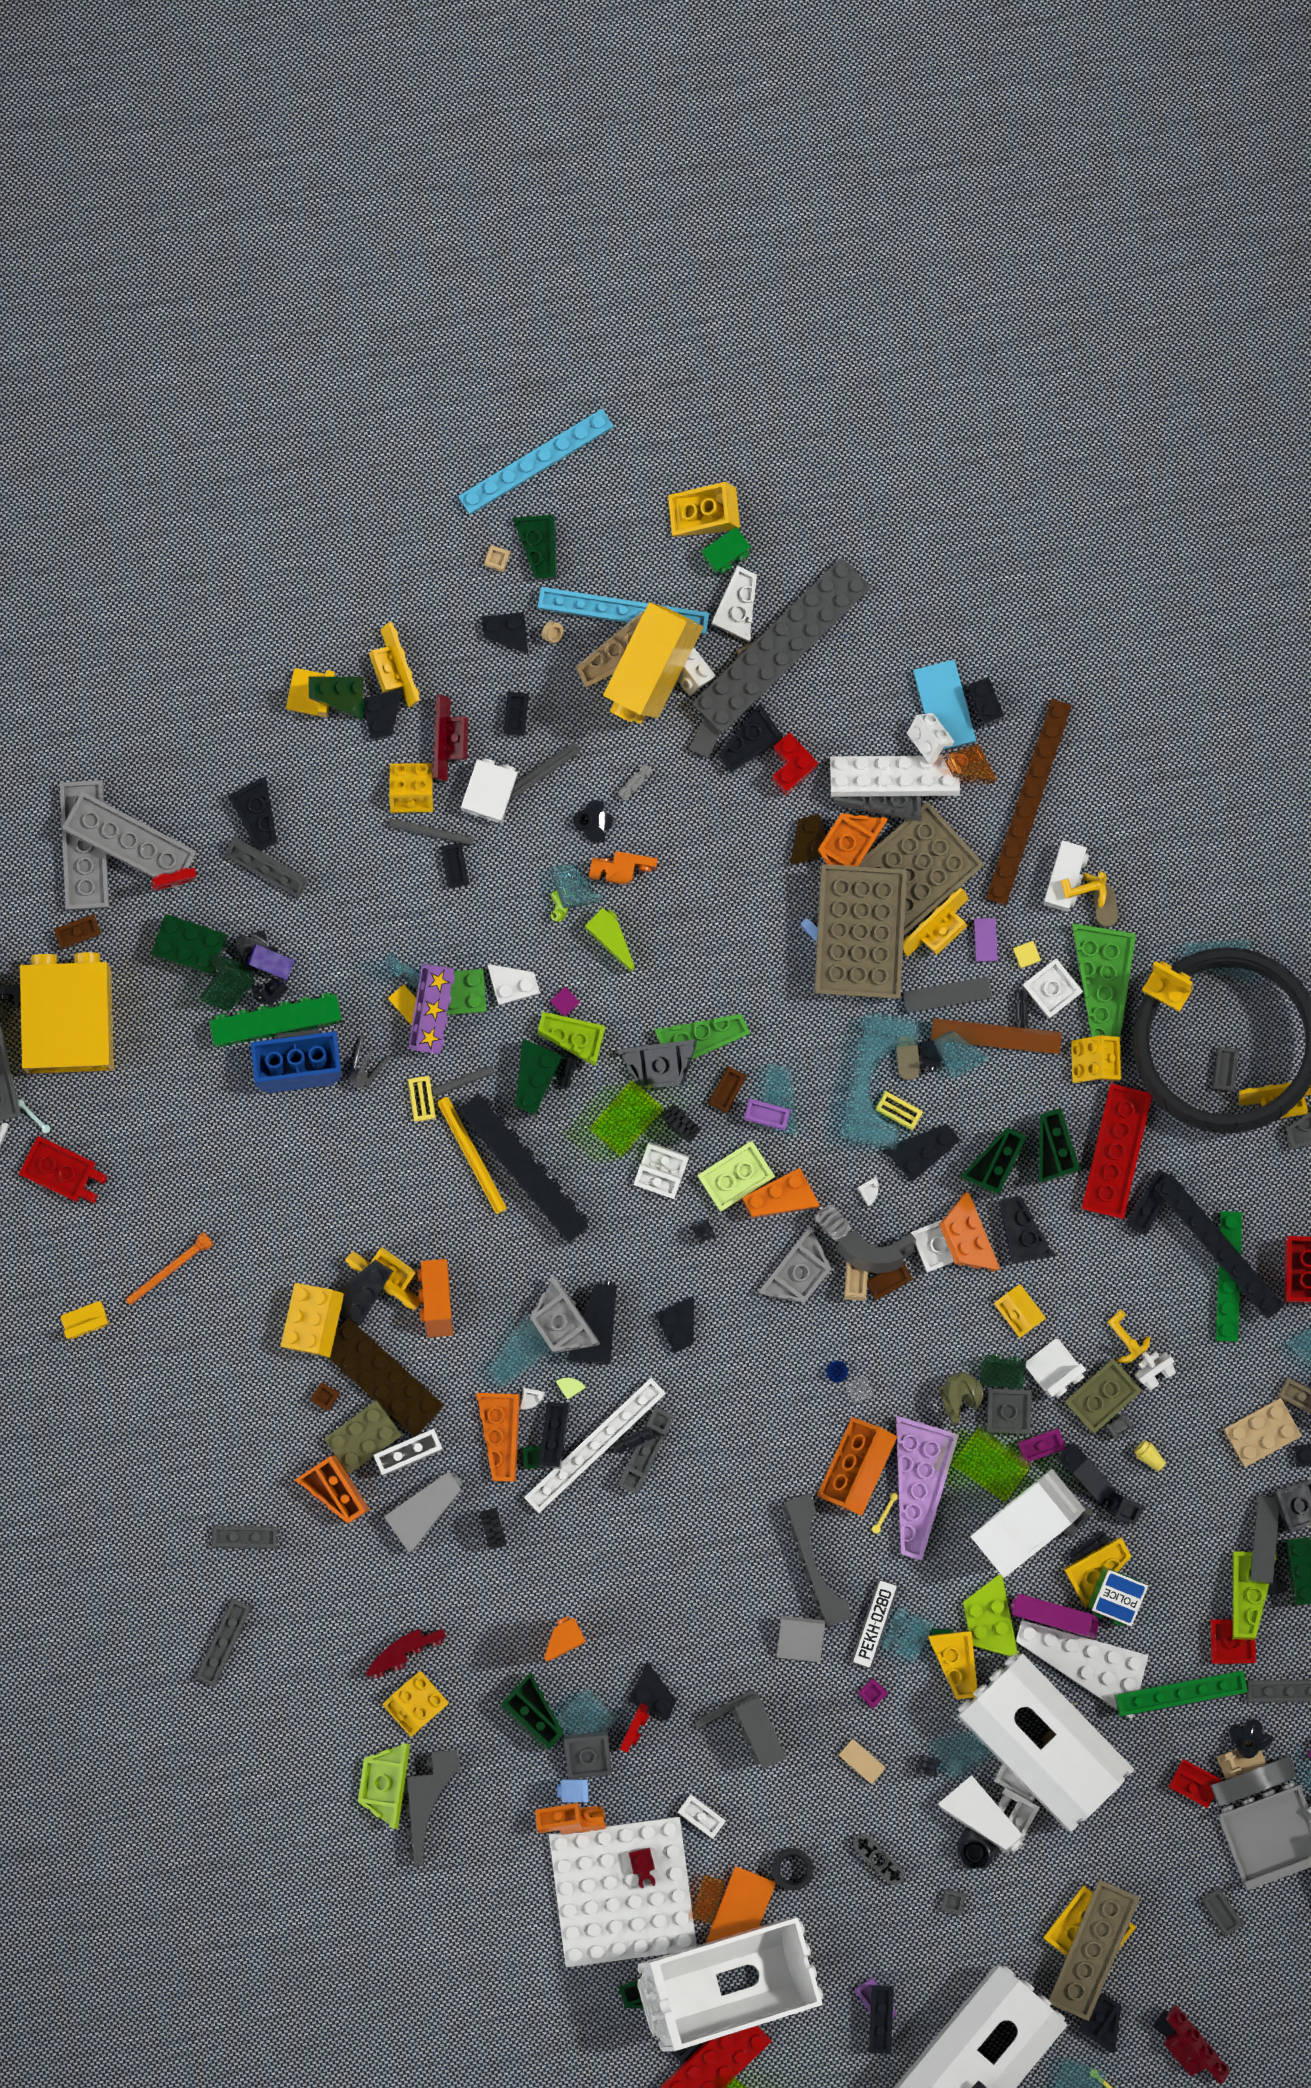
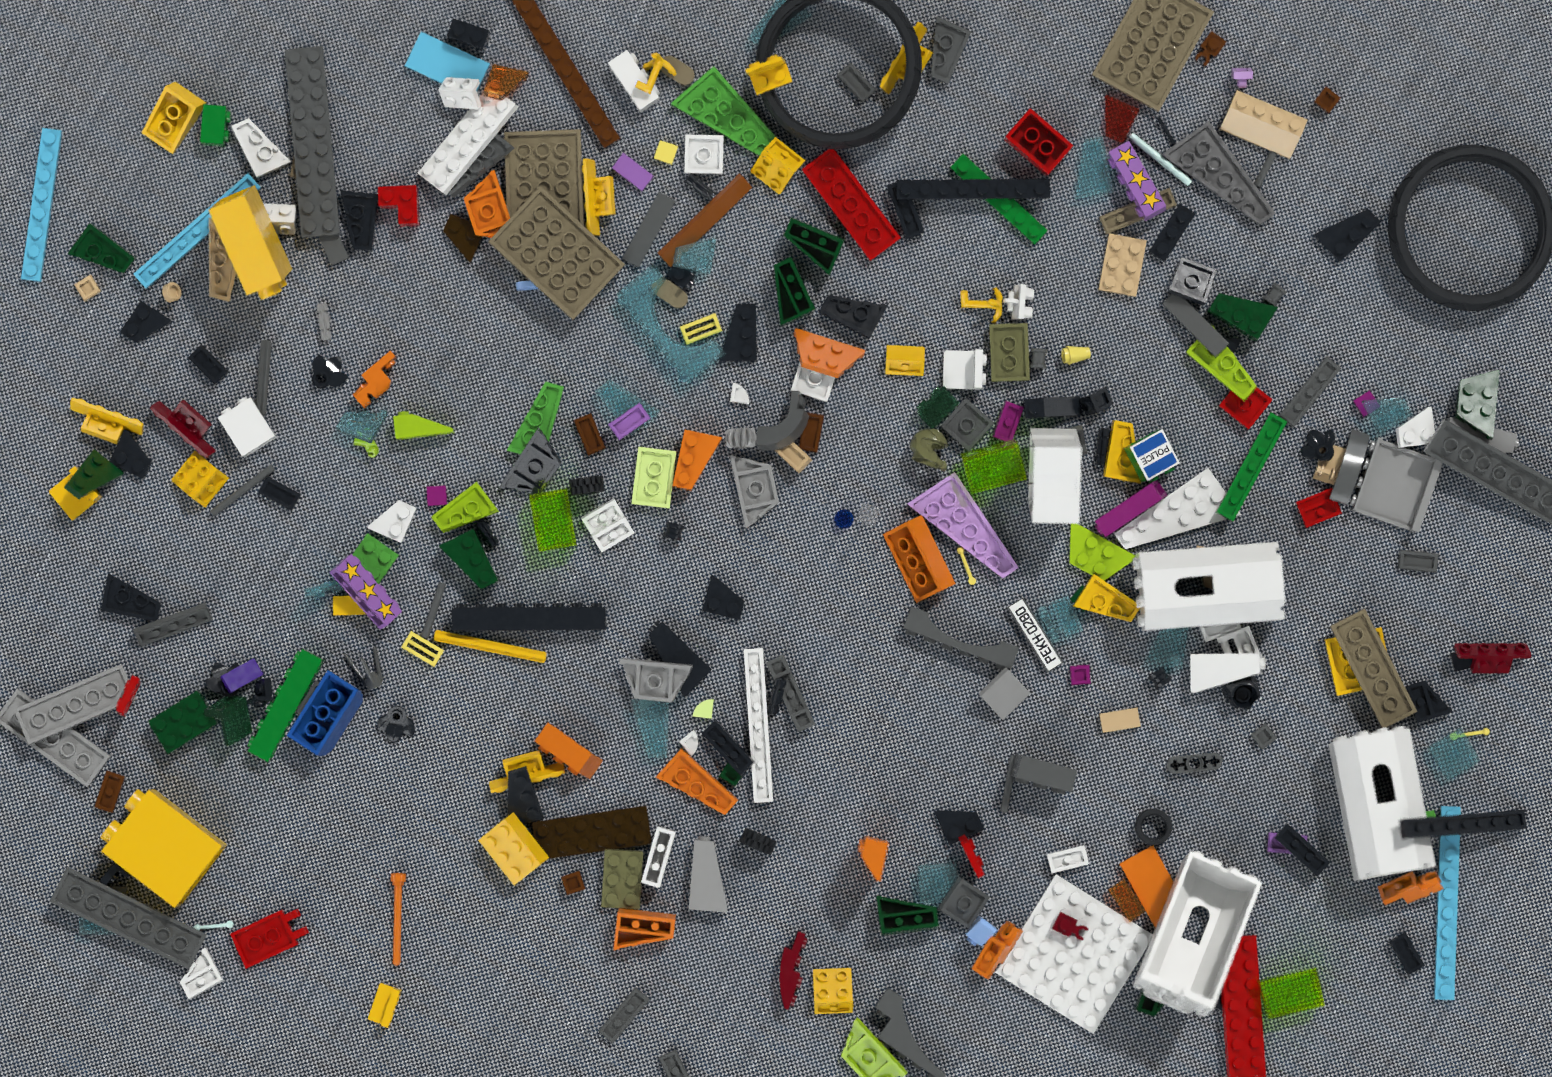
camera: 45 degrees left, 5 degrees up
(335, 1132) = (396, 726): none -> black plate

